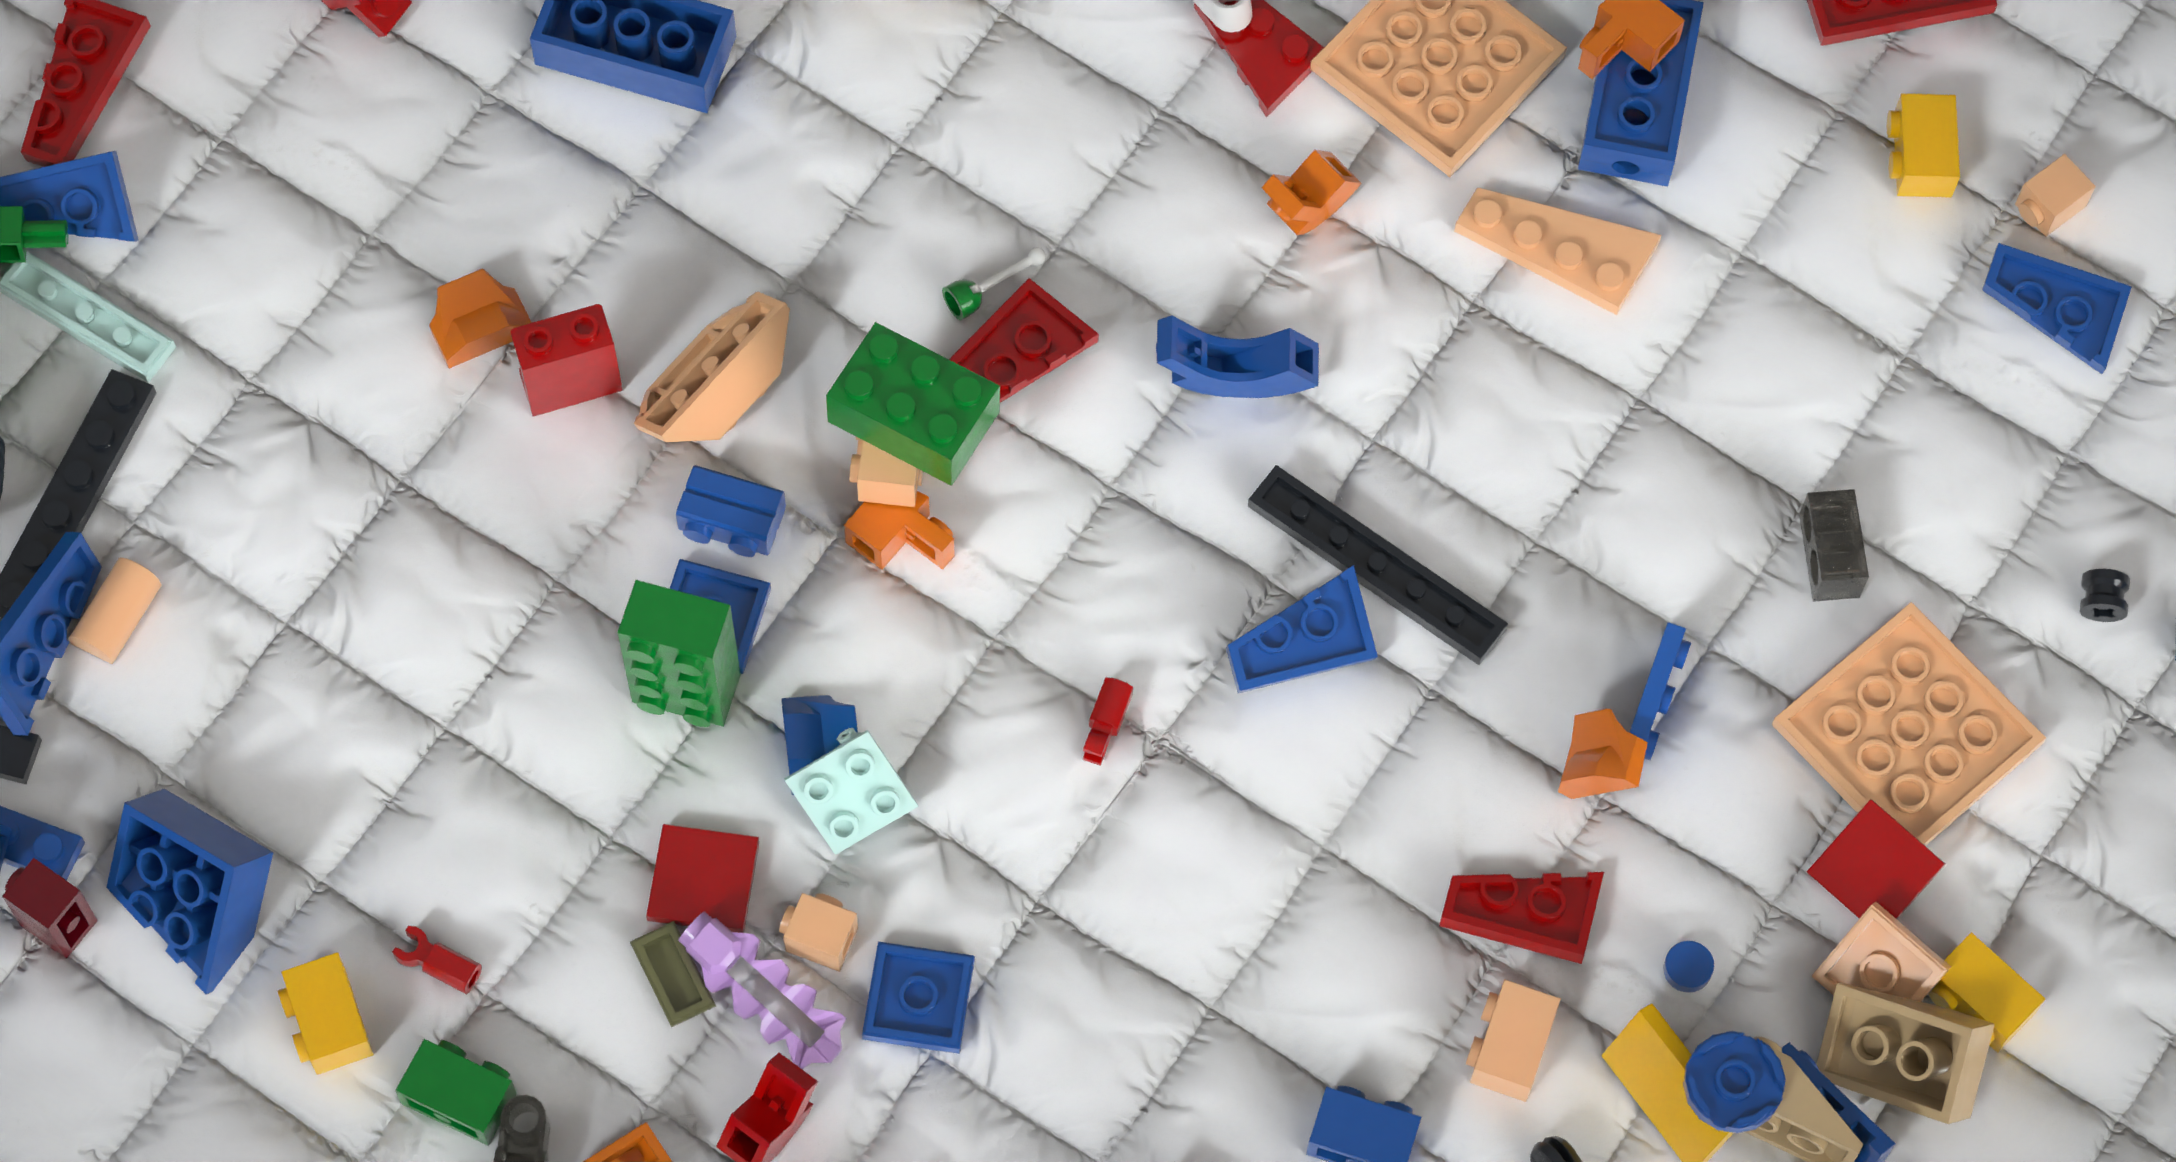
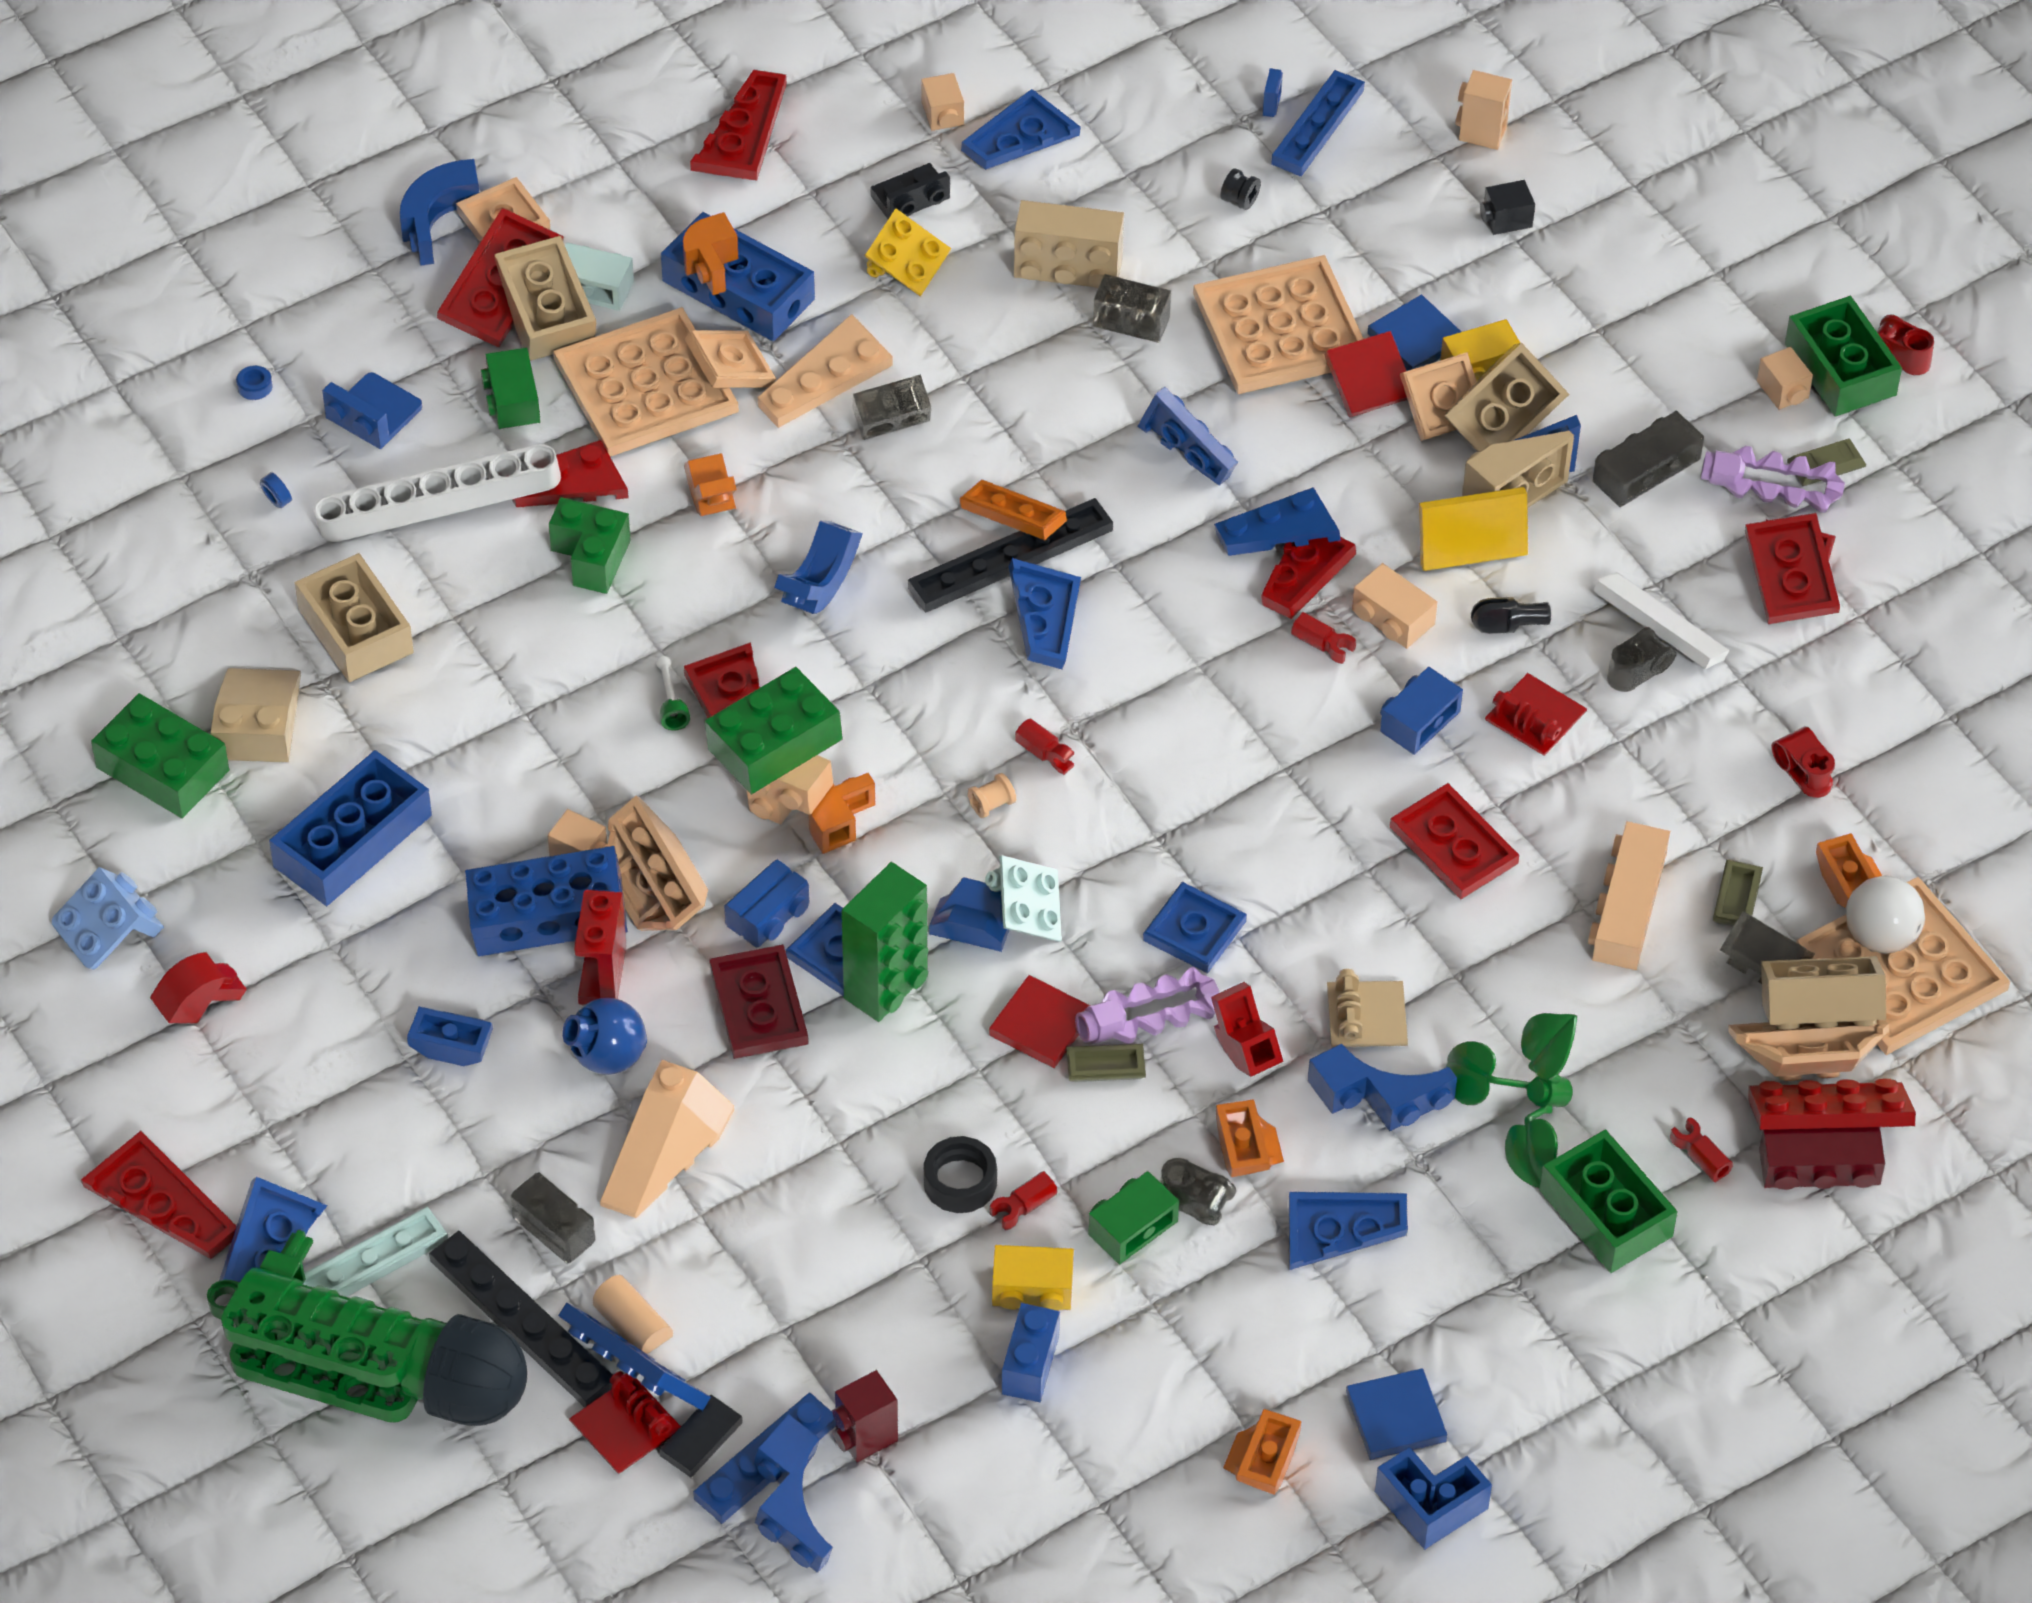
camera: 65 degrees left, 15 degrees down
(189, 882) = (887, 1326): blue wedge -> none
(200, 471) = (553, 1217): none -> clear smoke brick
(218, 1052) = (1030, 1352): none -> blue brick
(370, 541) = (671, 1127): none -> light nougat wedge
(411, 260) = (449, 1036): none -> blue slope
(431, 841) = (960, 1149): none -> black tyre
(456, 419) = (606, 1035): none -> blue brick
(475, 317) = (520, 1010): orange slope -> none
(592, 560) = (758, 1001): none -> dark red plate
(615, 261) = (536, 898): none -> blue brick
(727, 274) = (575, 834): none -> light nougat brick
(819, 930) = (1120, 960): light nougat brick -> none
(1001, 690) = (991, 795): none -> light nougat bush
(1165, 113) = (593, 538): none -> green brick
(1429, 971) = (1323, 637): none -> red bar
(1442, 538) = (1013, 509): none -> orange tile
(1514, 132) = (730, 359): none -> light nougat tile
(1525, 337) = (891, 407): none -> clear smoke brick
(1580, 858) = (1282, 521): none -> blue wing
(1601, 756) = (1222, 478): orange slope -> none
(1688, 966) = (1385, 500): blue tile -> none
(1734, 1082) = (1497, 476): blue tile -> none
(1789, 256) = (906, 253): none -> yellow hinge
(1884, 430) = (1067, 243): none -> tan brick
(1895, 221) = (912, 191): none -> black bracket
(1925, 145) = (867, 151): yellow brick -> none
(1985, 897) = (1416, 331): none -> blue tile

